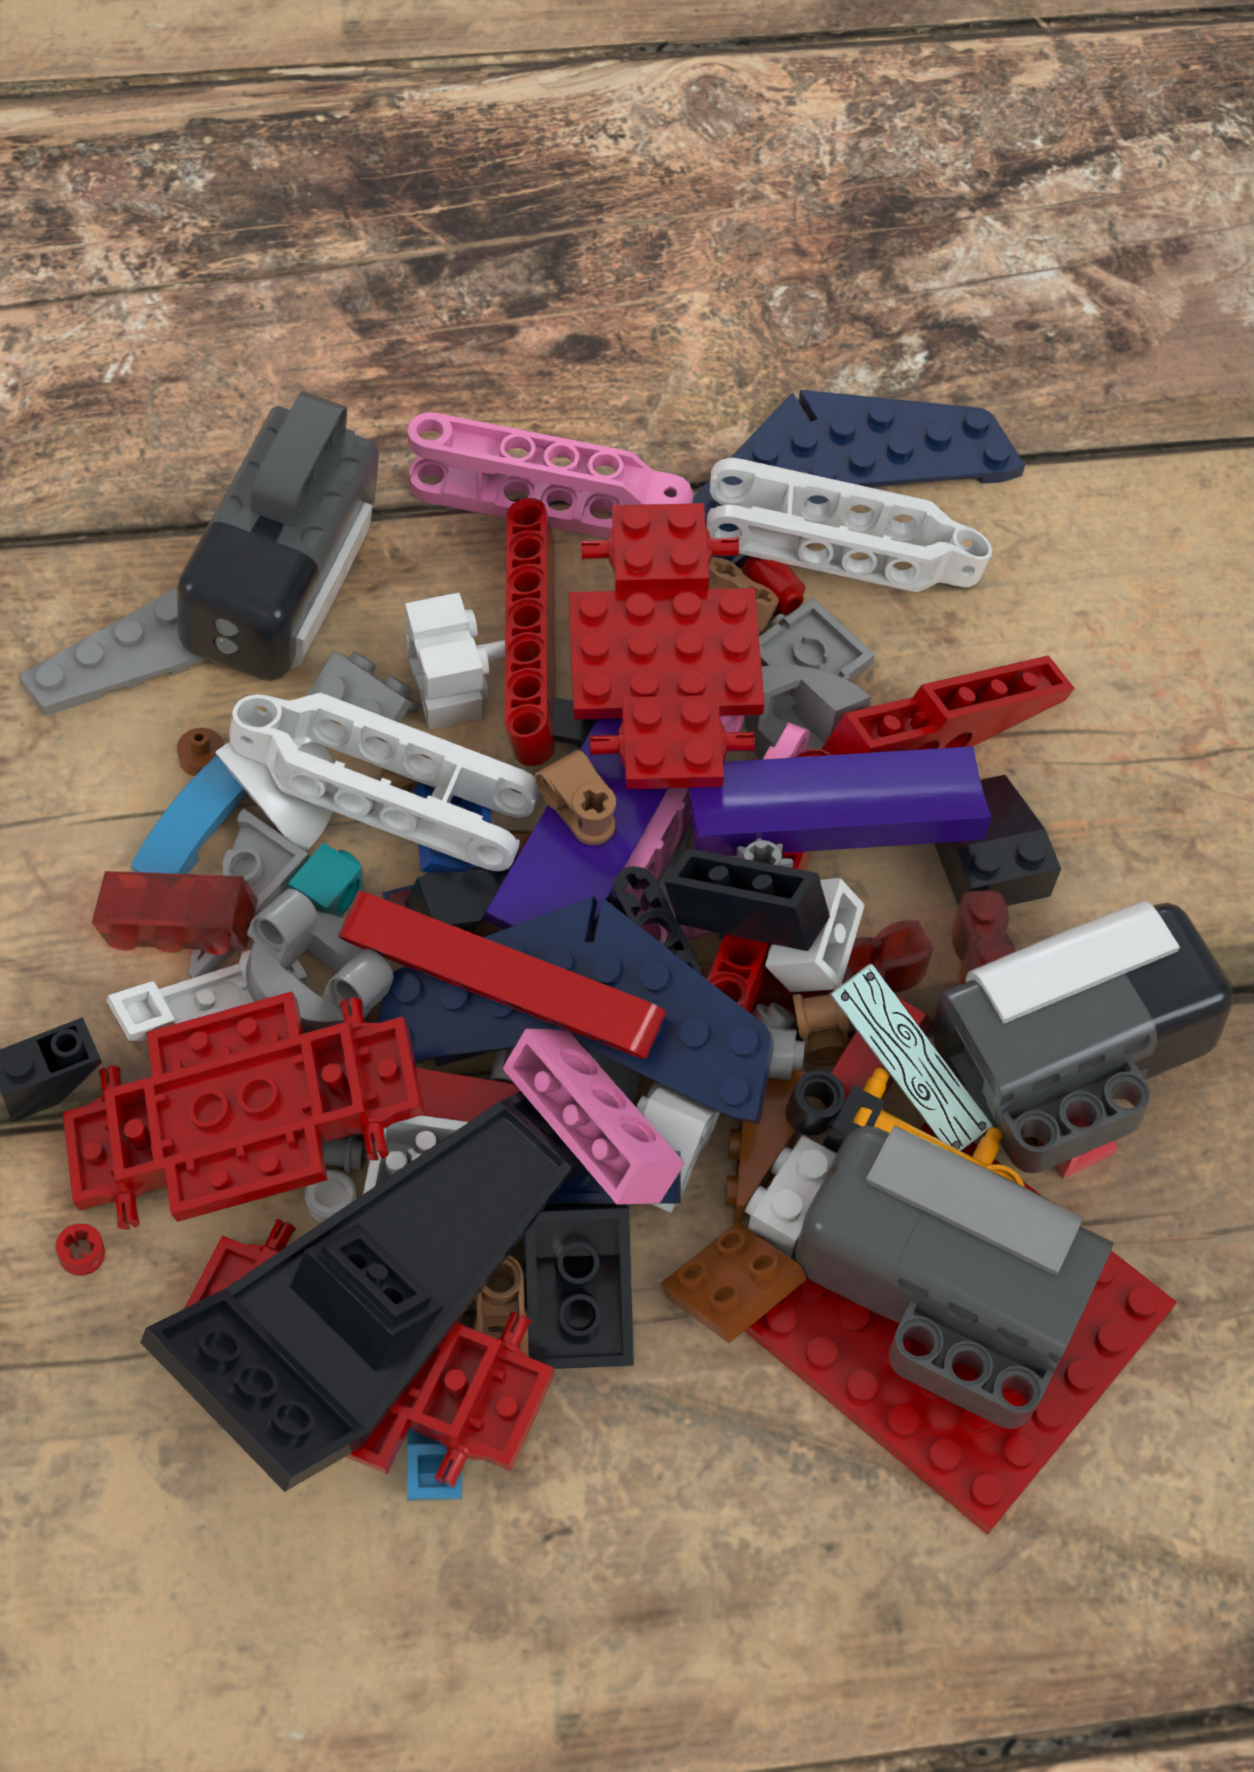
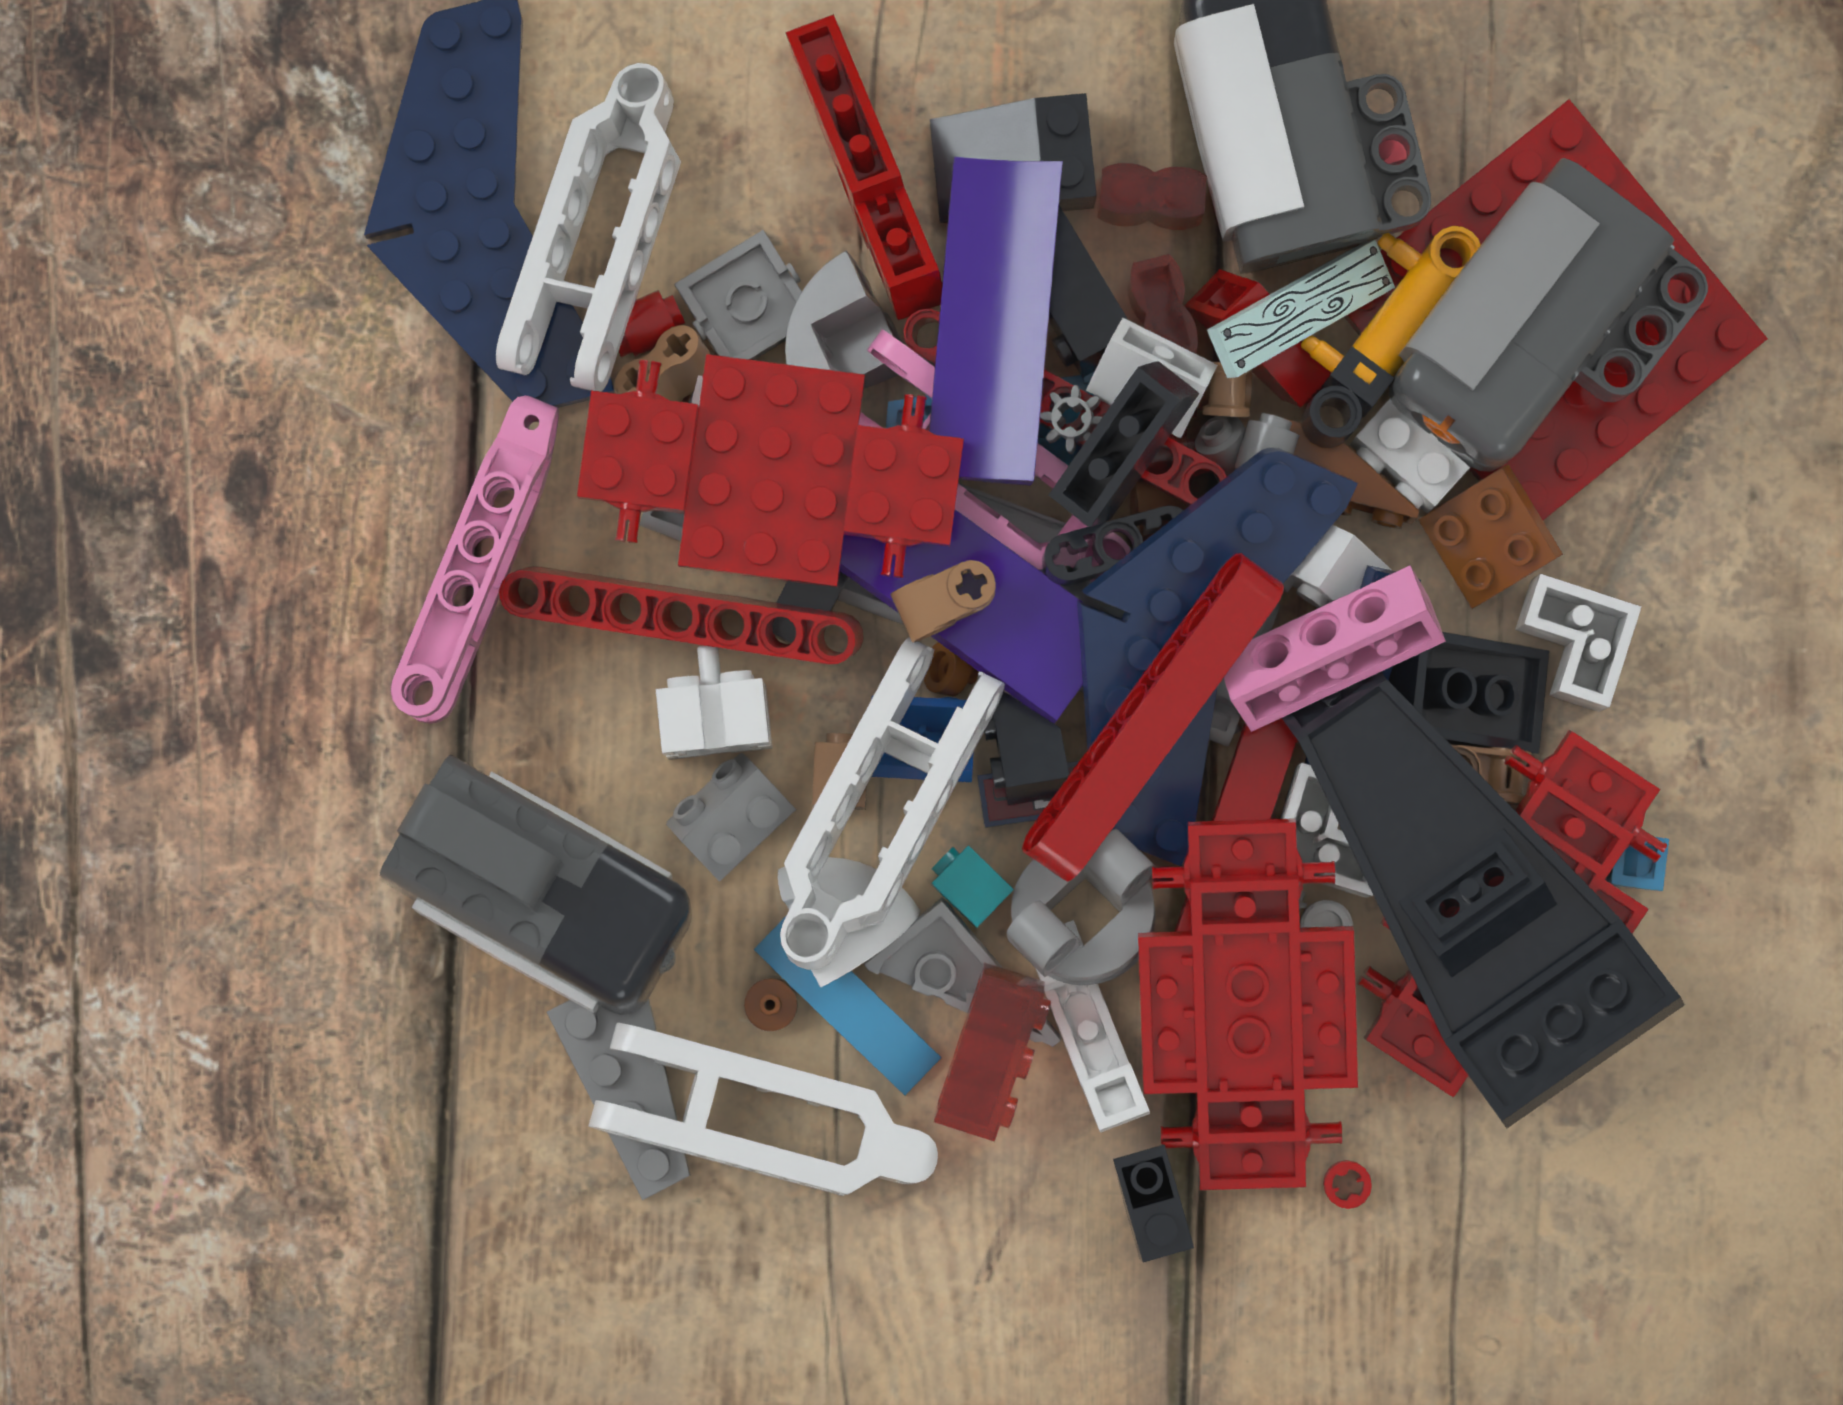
camera: 75 degrees left, 25 degrees up
(81, 841) = (885, 1149): none -> white piece
(651, 1390) = (1594, 634): none -> white brick
(896, 882) = (1080, 303): none -> black brick

